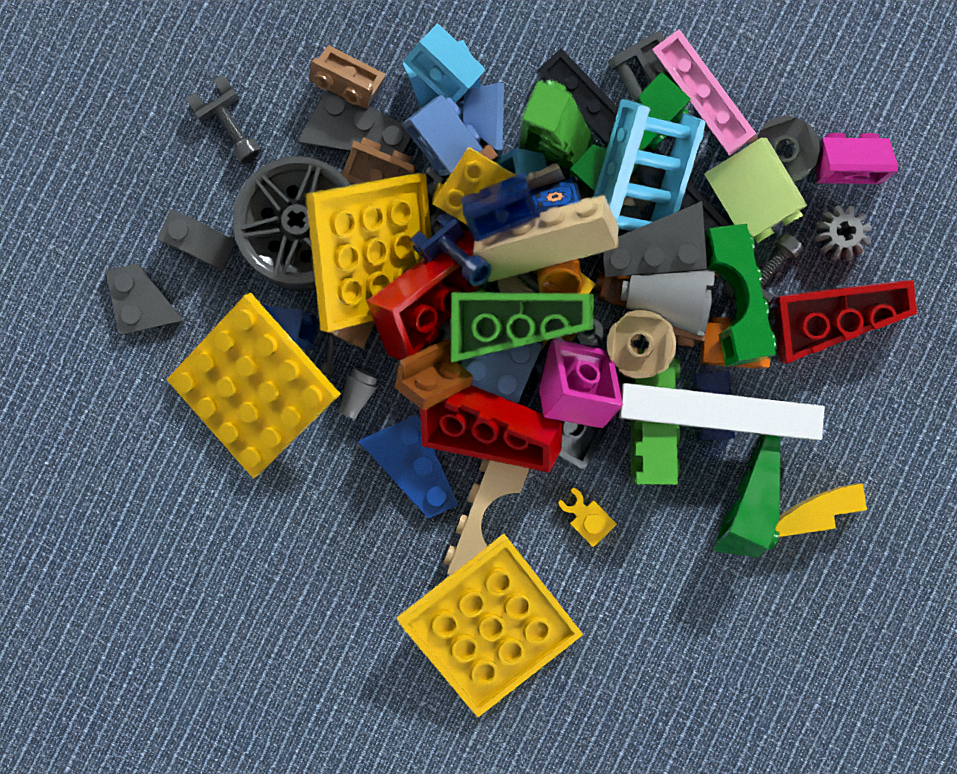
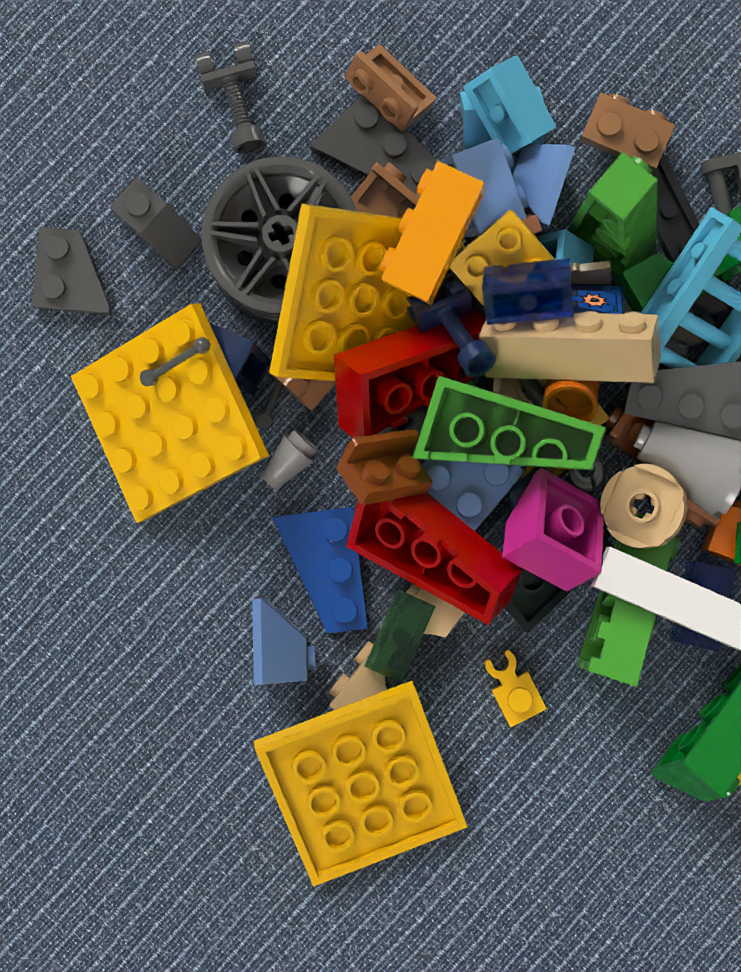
camera: 10 degrees right, 0 degrees up
(230, 361) = (150, 377): none -> dark grey hinge
(393, 539) = (279, 647): none -> medium blue slope
(413, 183) = (432, 232): none -> light orange brick
(484, 502) = (399, 635): none -> clear green slope
(542, 55) = (624, 128): none -> medium nougat bracket

